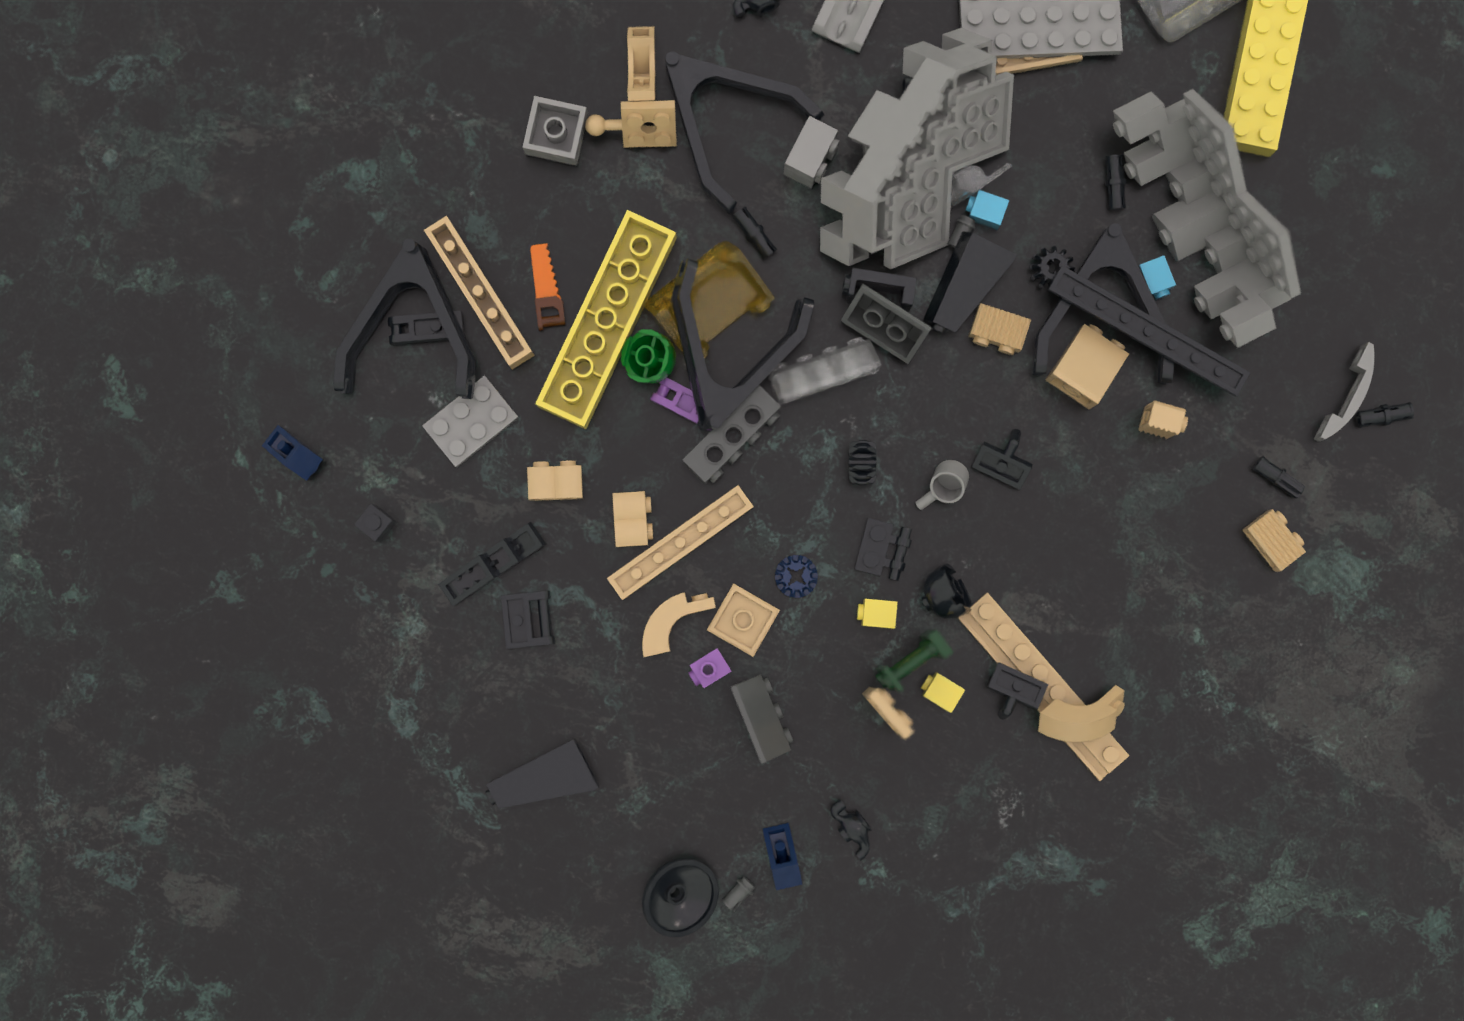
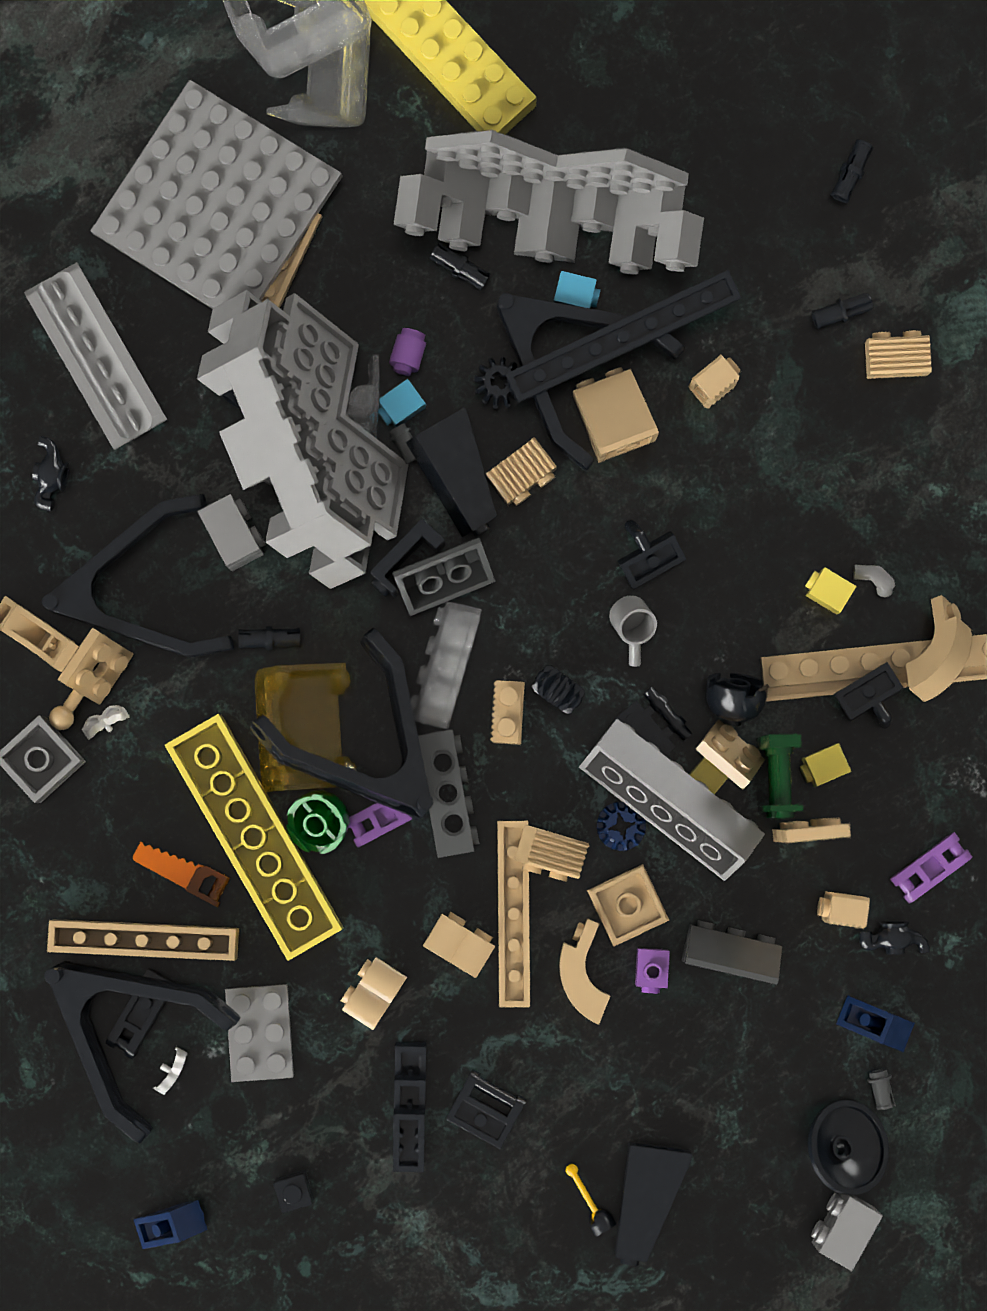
camera: 55 degrees left, 0 degrees up
(400, 380) = (173, 1072): none -> white piece
(505, 755) = (600, 1219): none -> hinge
(620, 159) = (98, 722): none -> white piece
(620, 935) = (845, 1229): none -> light grey brick
(742, 537) = (551, 852): none -> tan brick
(820, 438) = (507, 712): none -> tan brick
(840, 597) = (672, 800): none -> light grey brick
(848, 776) = (844, 909): none -> tan brick
(903, 617) = (731, 754): none -> tan plate
(922, 820) = (931, 867): none -> medium lavender plate
(1028, 188) = (407, 351): none -> medium lavender brick
(1070, 607) = (829, 590): none -> light yellow brick
(1105, 635) = (877, 575): none -> light grey arm
(1364, 366) = (792, 158): light grey slope -> none

